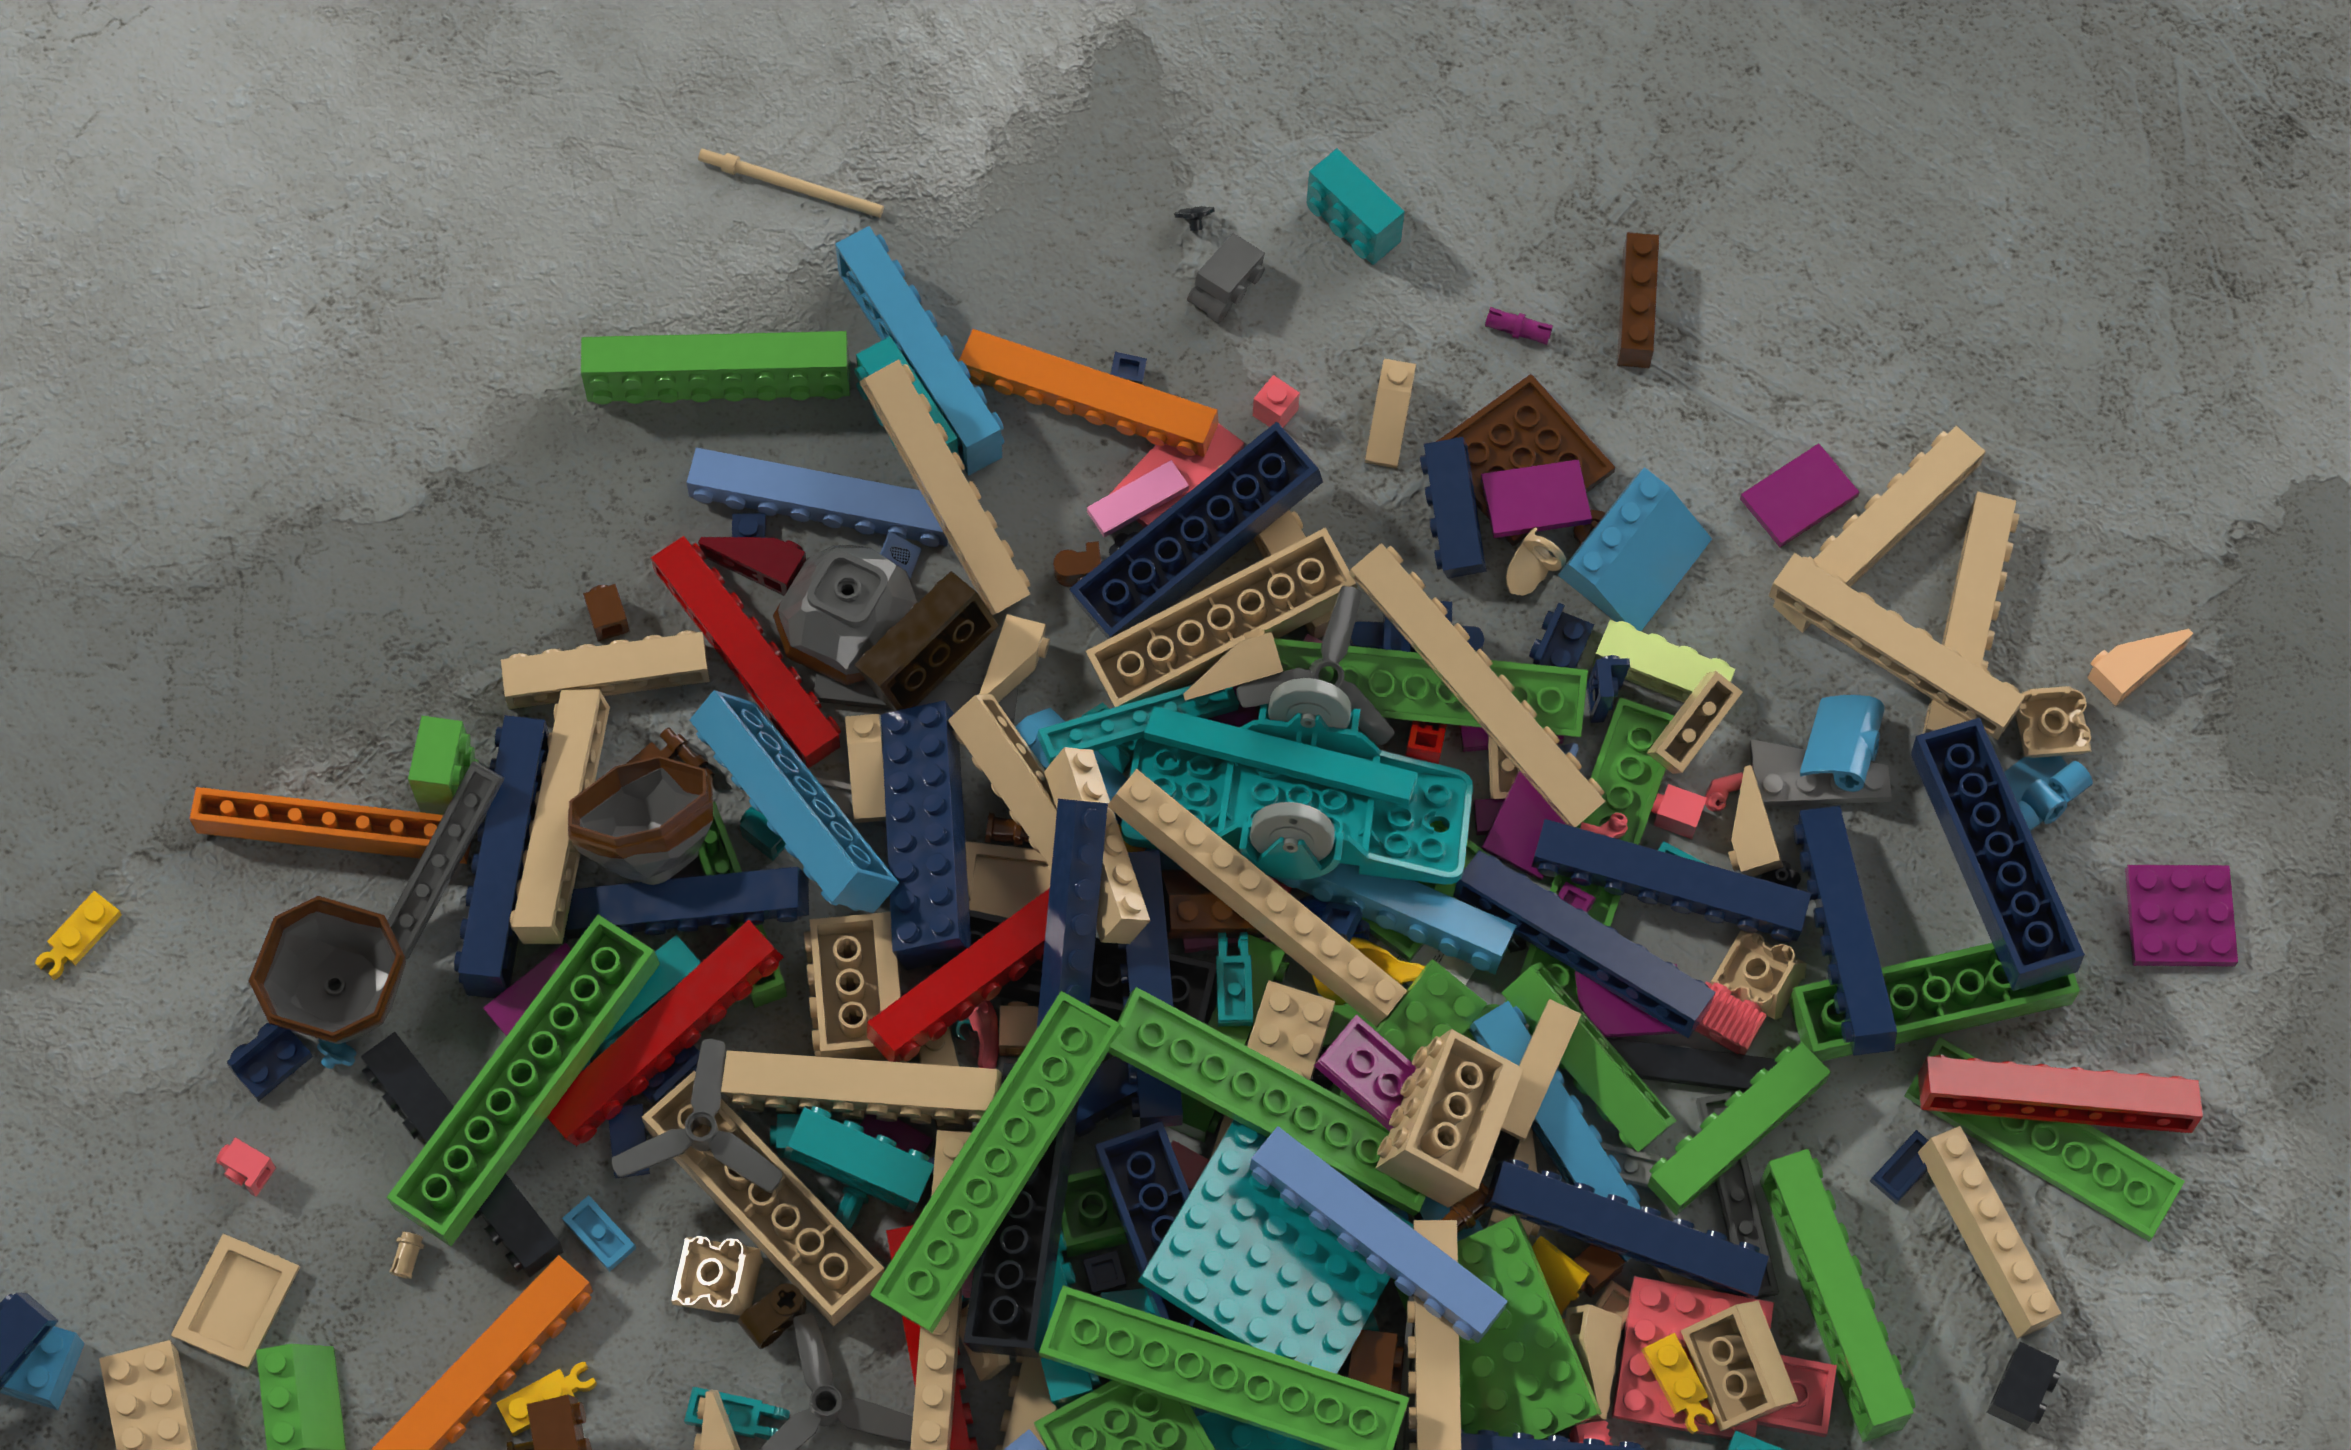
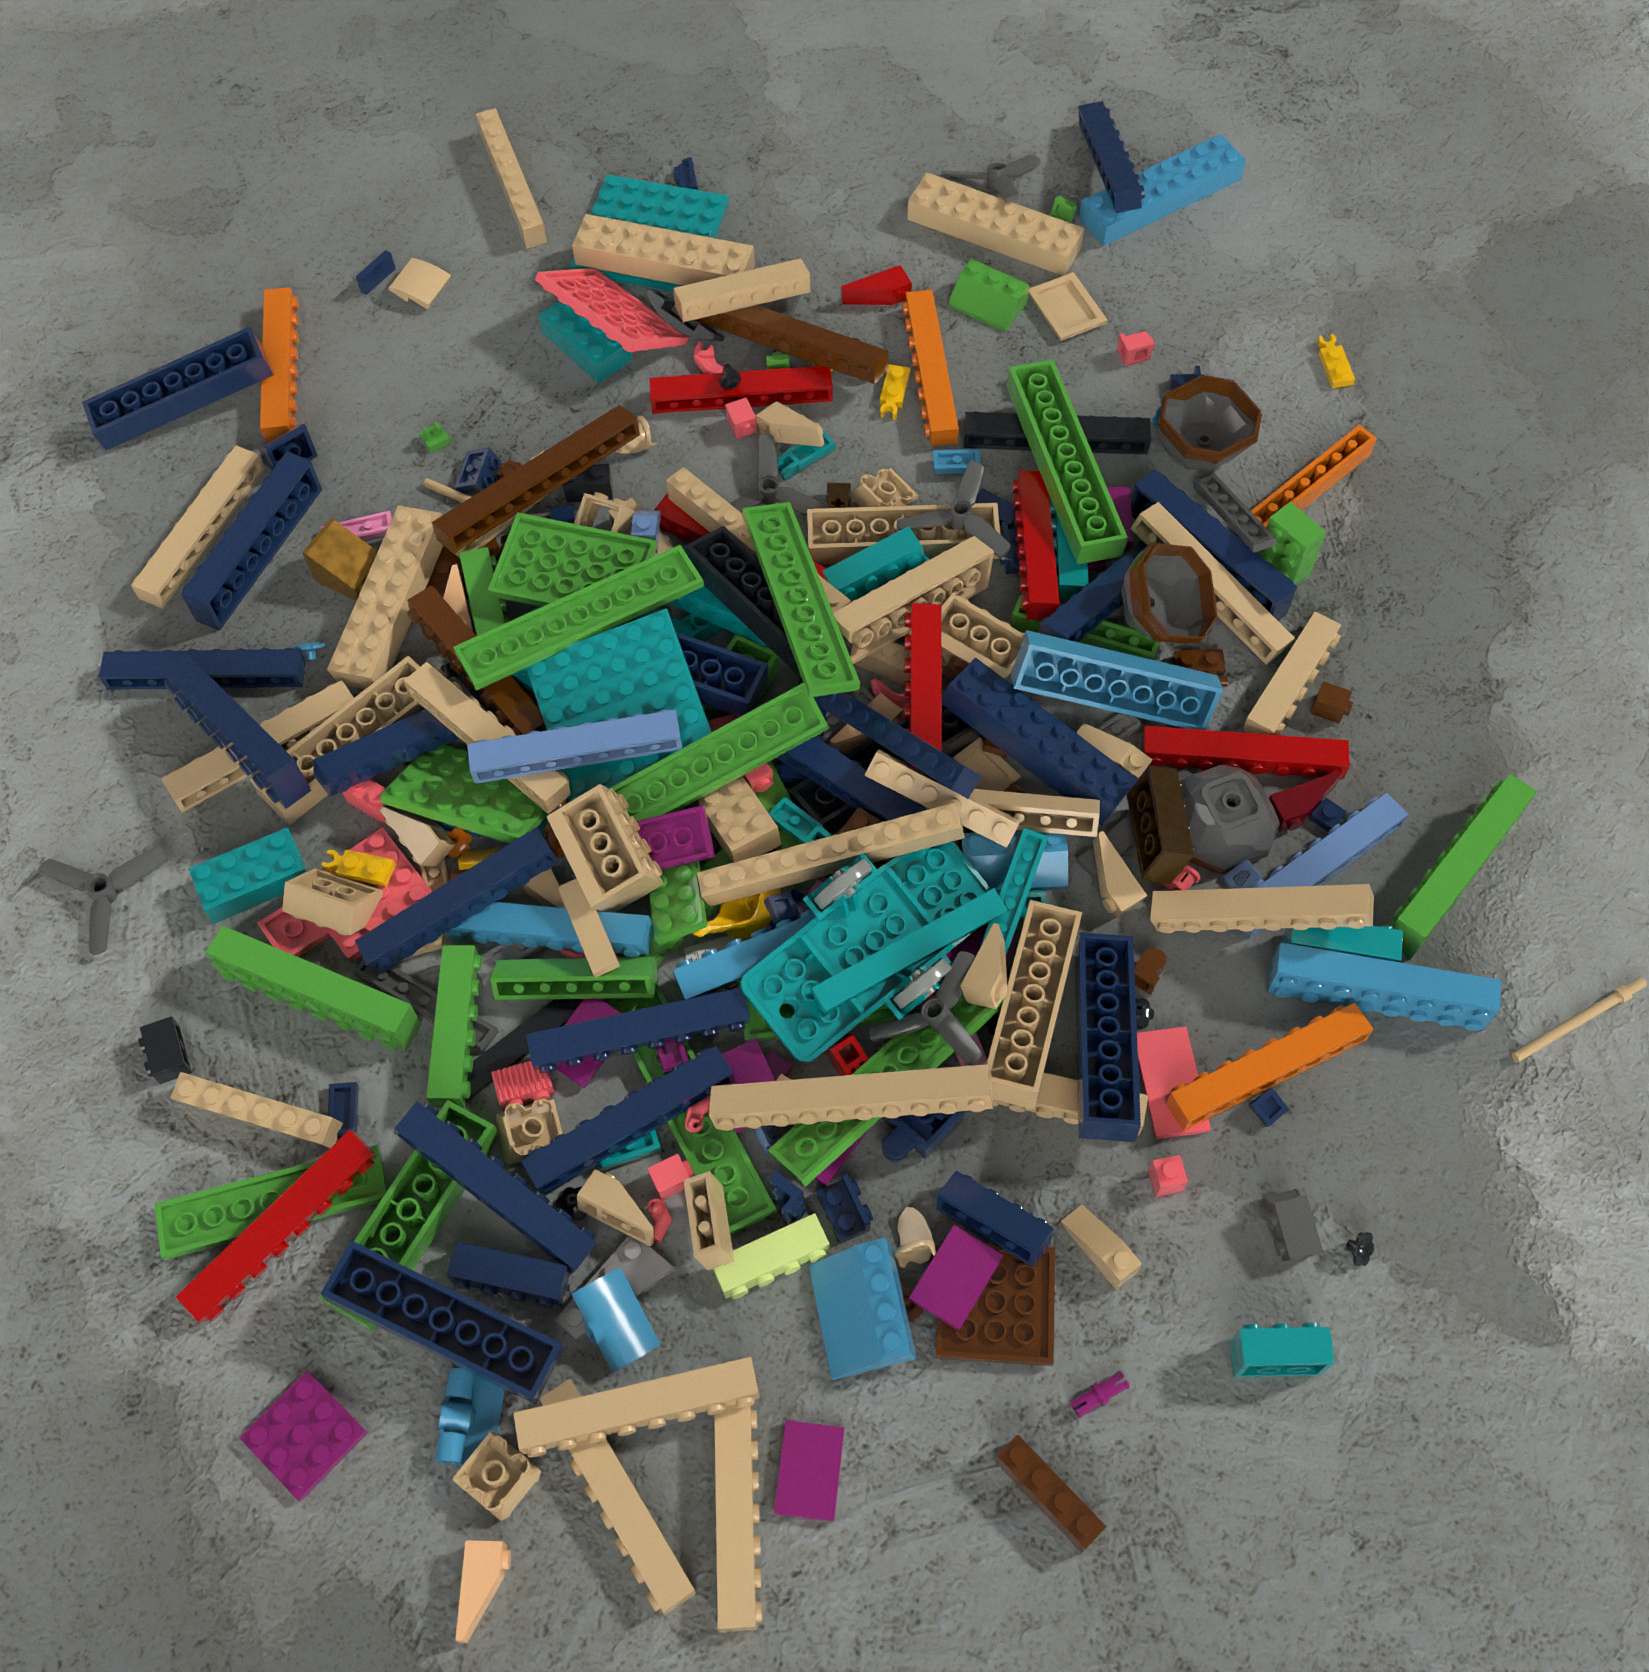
camera: 135 degrees right, 5 degrees down
(69, 1425) = (1063, 209): none -> bright green tile
(1137, 498) = (1167, 1037): bright pink tile -> none
(1896, 869) = (508, 1274): none -> dark blue brick

